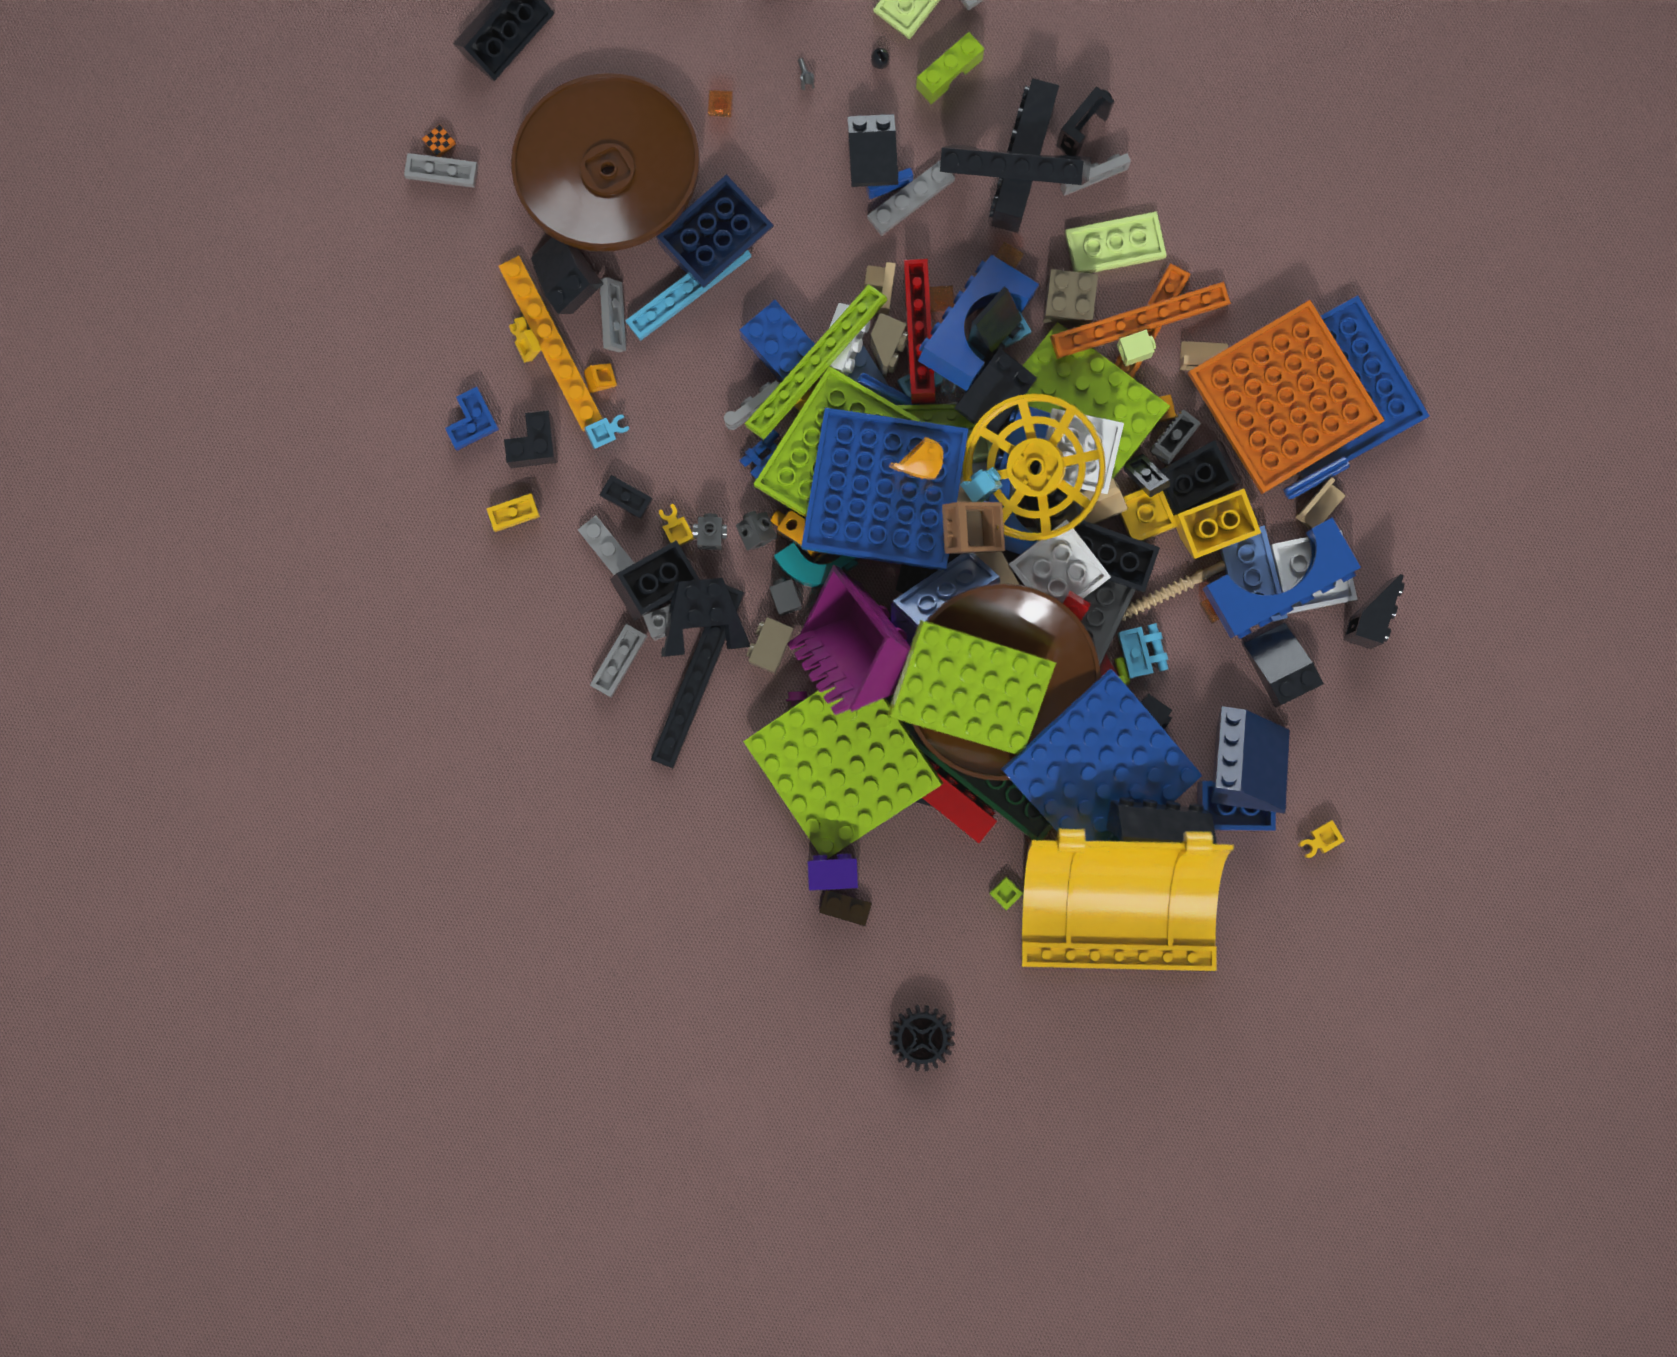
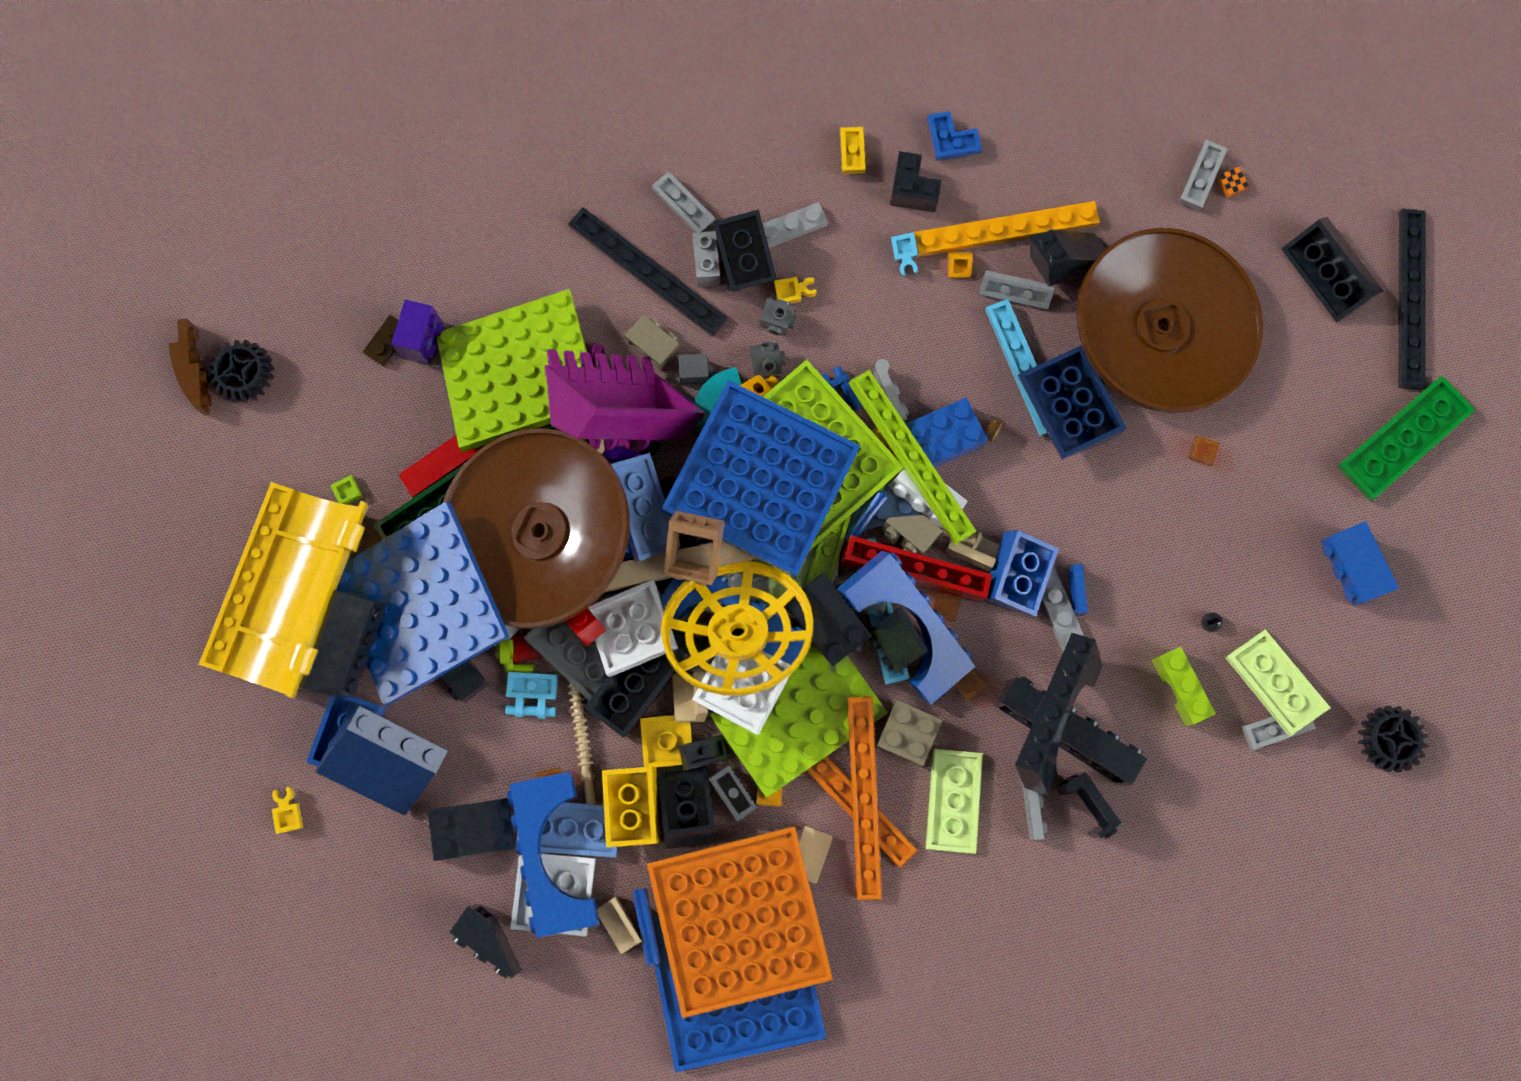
camera: 105 degrees right, 5 degrees down
(526, 341) = (1011, 205): yellow plate -> none
(626, 497) = (836, 253): black plate -> none
(702, 605) = (707, 283): black wing -> none
(758, 300) = (993, 429): none -> clear orange tile
(805, 77) = (1210, 542): dark grey hand -> none
(872, 150) = (1114, 579): black slope -> none
(890, 236) = (1021, 572): none -> blue slope
(922, 461) = (773, 514): light orange helmet -> none
(943, 1085) = (188, 372): none -> reddish brown slope
(971, 688) = (530, 487): lime plate -> none
(982, 485) = (735, 571): medium azure brick -> none
(1136, 347) = (836, 783): yellowish green brick -> none

